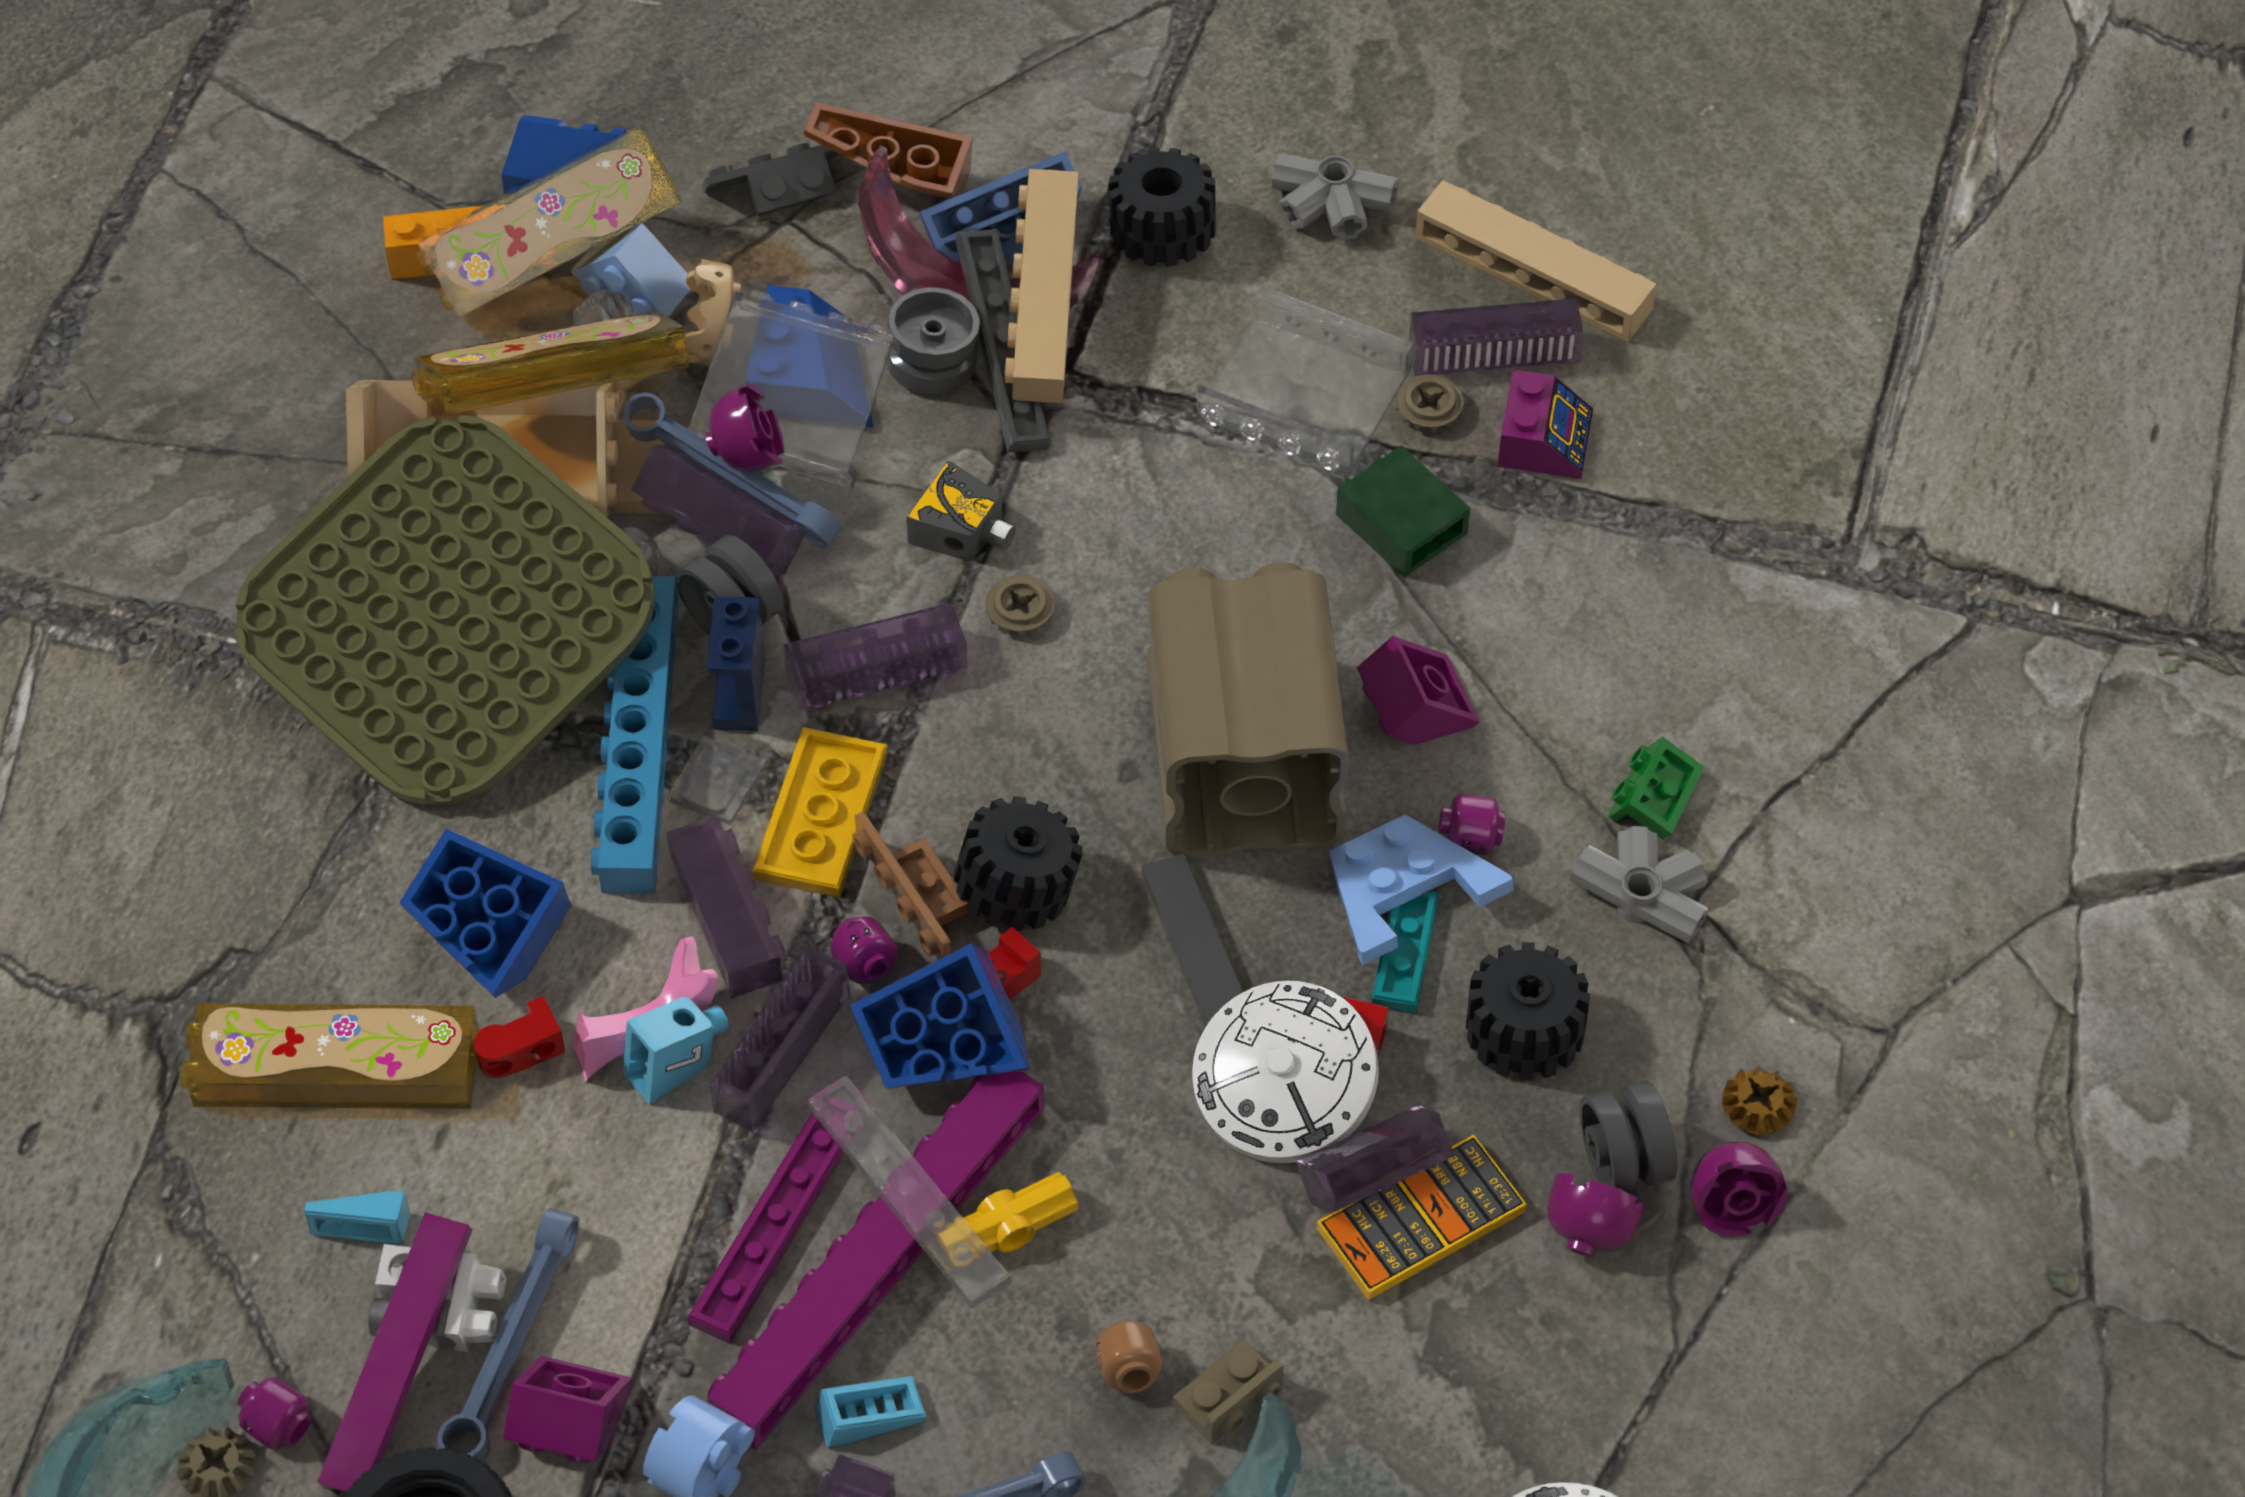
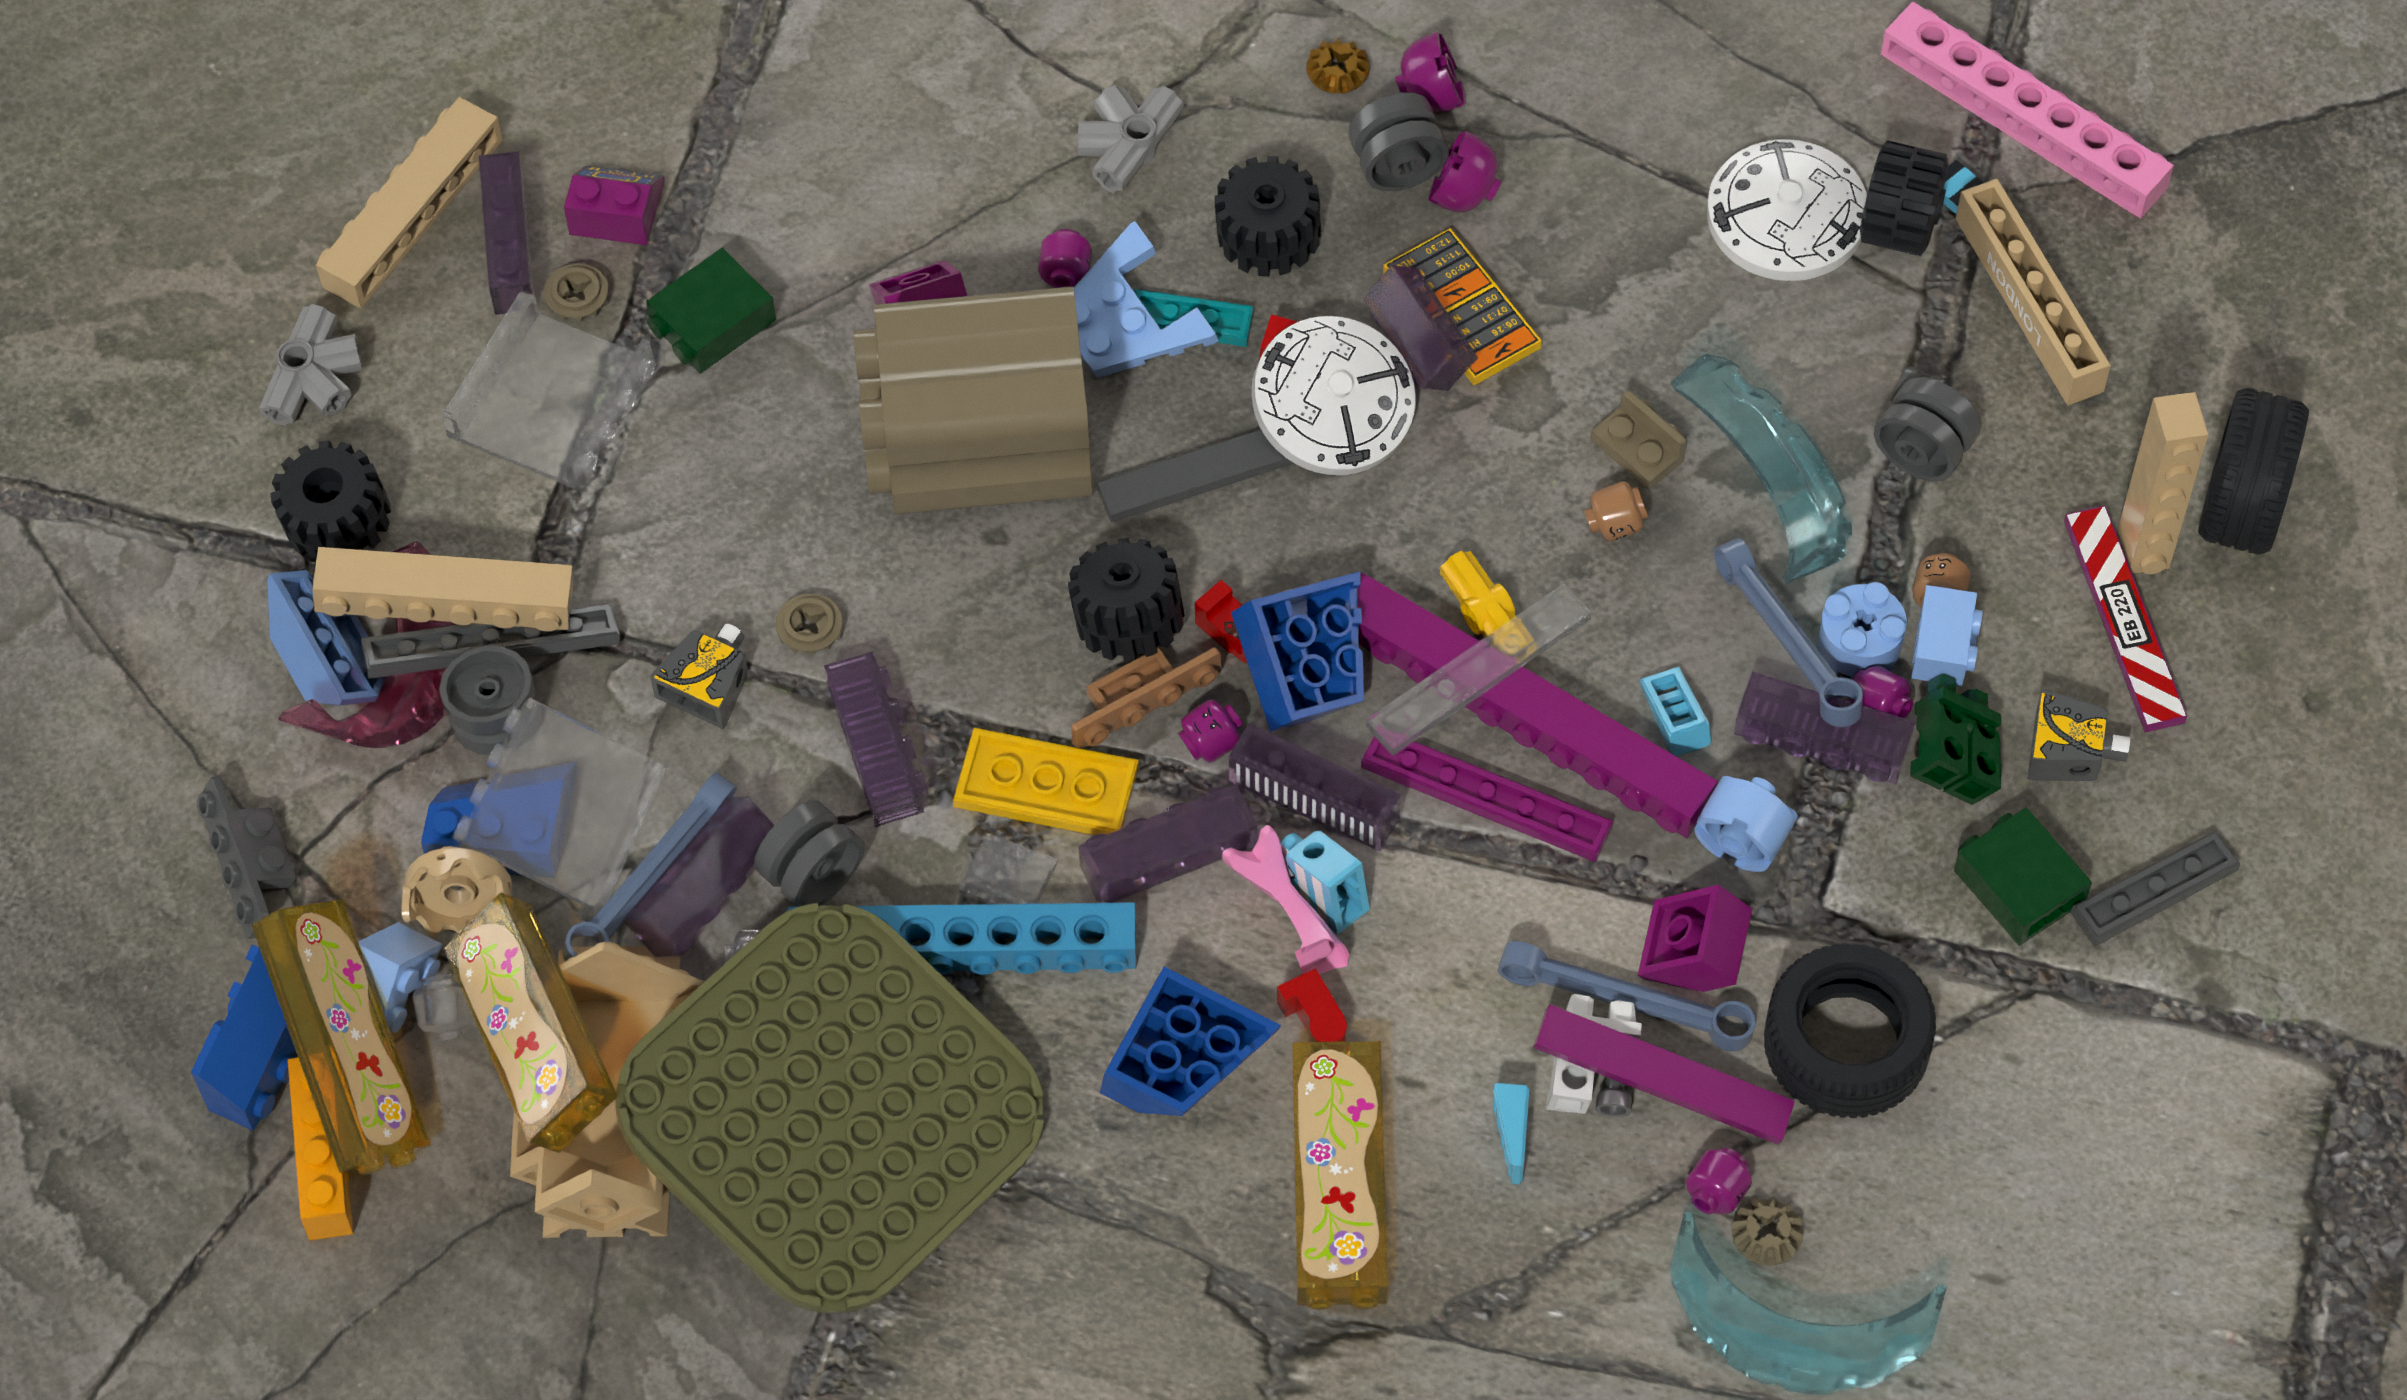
camera: 90 degrees left, 5 degrees up
(739, 660) = (902, 840): dark blue panel -> none
(744, 432) = (630, 838): magenta cylinder -> none
(917, 155) = (246, 733): dark orange wedge -> none
(1656, 787) = (1022, 127): green bracket -> none

